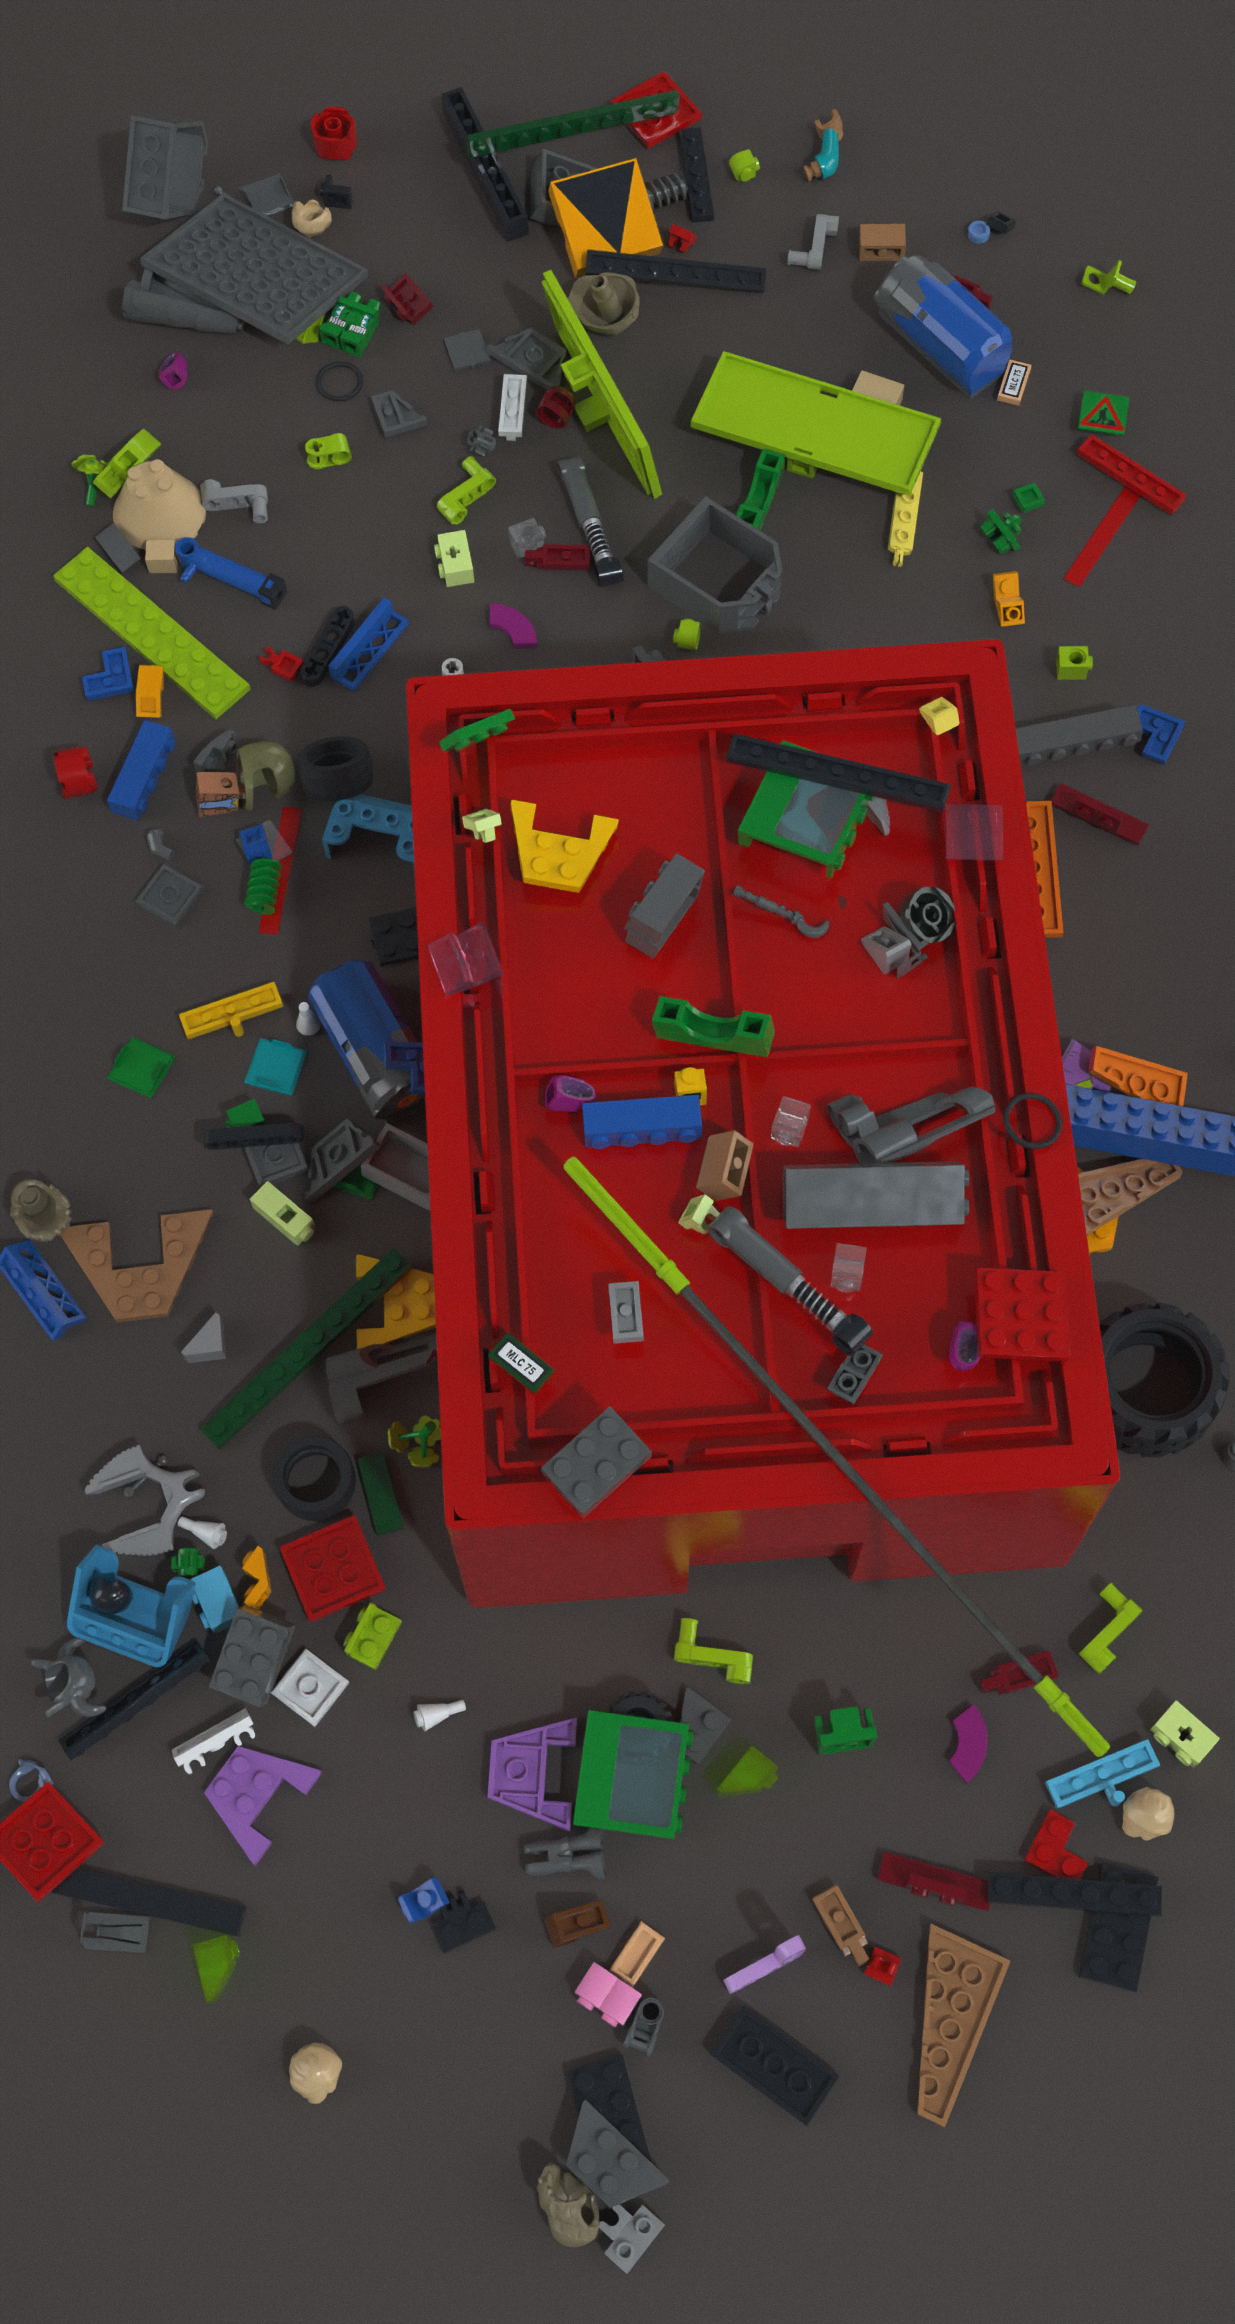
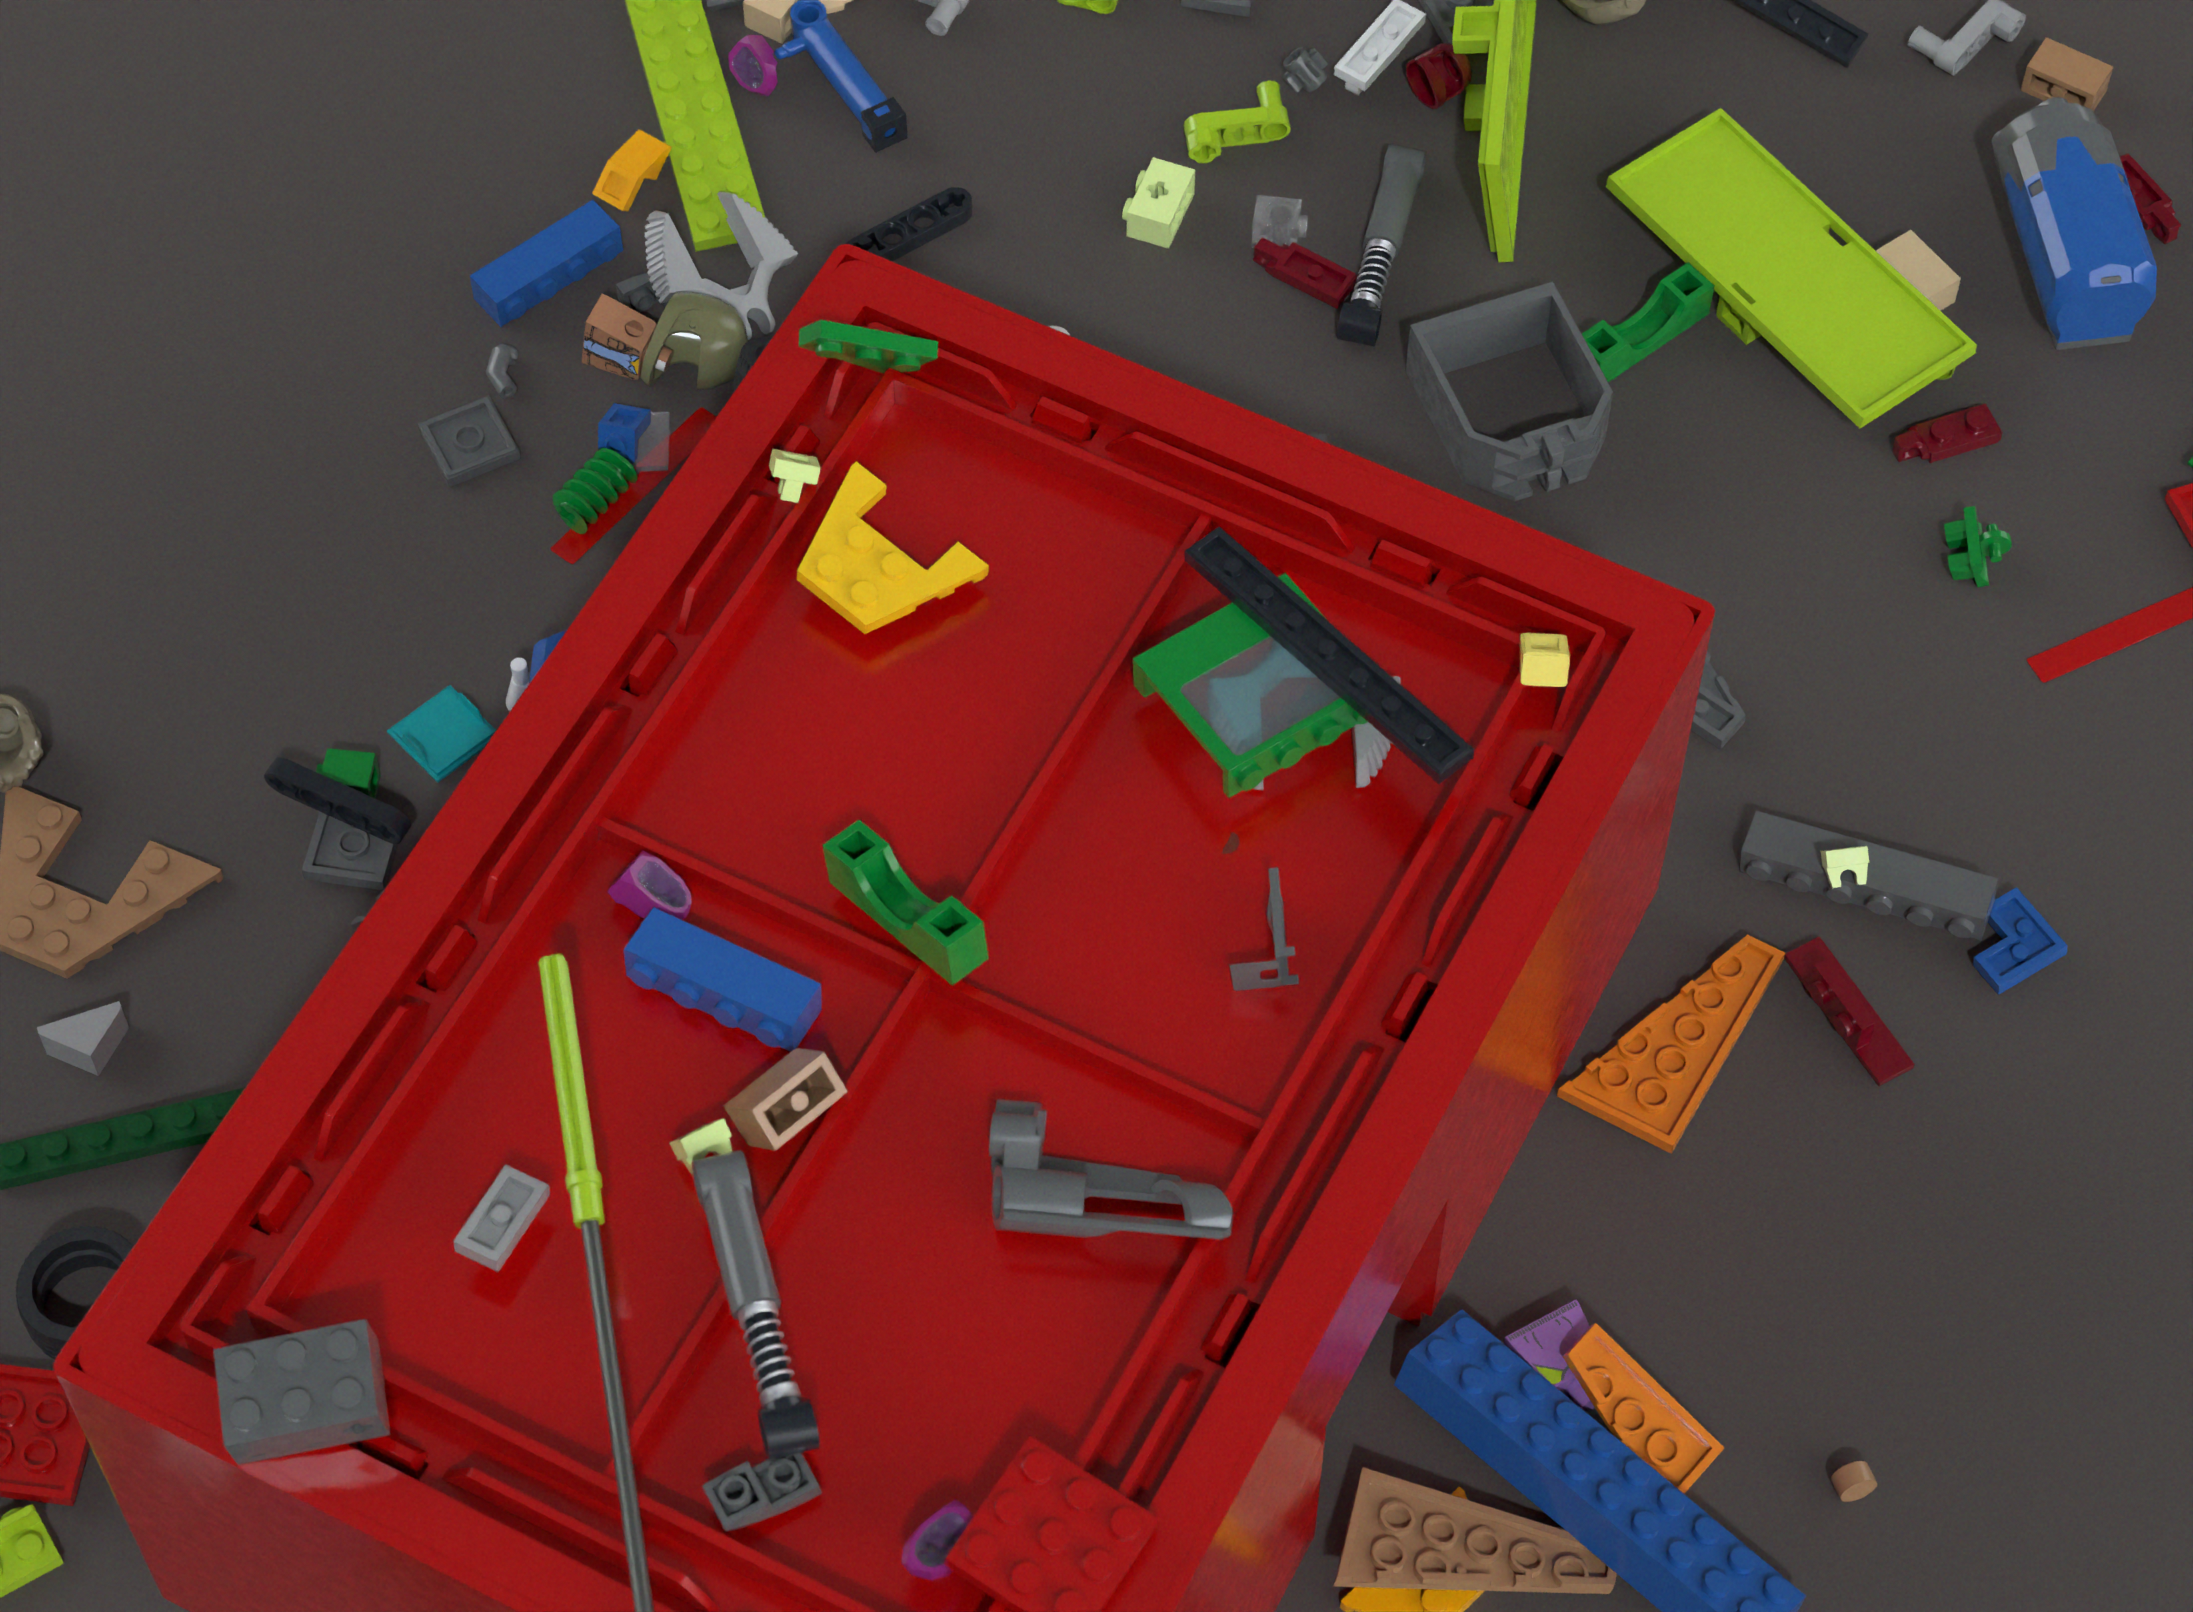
camera: 30 degrees right, 10 degrees down
(74, 773) = (456, 219): red brick -> none
(115, 679) = (595, 135): blue plate -> none
(141, 1067) = (270, 638): green piece -> none
(176, 594) = (754, 65): none -> magenta rock
(226, 738) = (761, 244): none -> light grey piece
(231, 1011) = (435, 629): yellow plate -> none
(283, 665) = (829, 224): red plate -> none
(283, 1214) = (305, 924): yellowish green brick -> none
(361, 640) = (961, 242): blue fence -> none
(465, 959) = (639, 635): clear pink slope -> none
(514, 625) = (1180, 327): magenta tile -> none
(521, 1363) = (308, 1204): tile -> none
(663, 905) = (960, 706): dark grey piece -> none
(687, 635) = (1412, 457): lime plate -> none
(691, 1081) = (829, 962): yellow brick -> none
(790, 1122) = (927, 1094): clear brick -> none
(796, 917) = (1144, 827): dark grey piece -> none
(848, 1267) = (859, 1338): clear brick -> none
(874, 1194) = (964, 1255): dark grey brick -> none
(887, 948) = (1242, 937): light grey slope -> none
(904, 523) = (1841, 461): light yellow plate -> none
(927, 914) = (1326, 917): pearl dark grey cylinder -> none
(949, 475) = (1948, 435): none -> dark red hinge
(974, 832) = (1474, 839): clear pink slope -> none
(1007, 599) = (1919, 644): light orange slope -> none
(1014, 382) = (2137, 357): tile -> none
(1028, 498) = (2047, 522): green plate -> none
(1049, 1103) = (1272, 1327): black piece -> none
(1056, 735) = (1841, 859): none -> yellowish green tile
(1069, 671) = (1950, 765): lime brick -> none

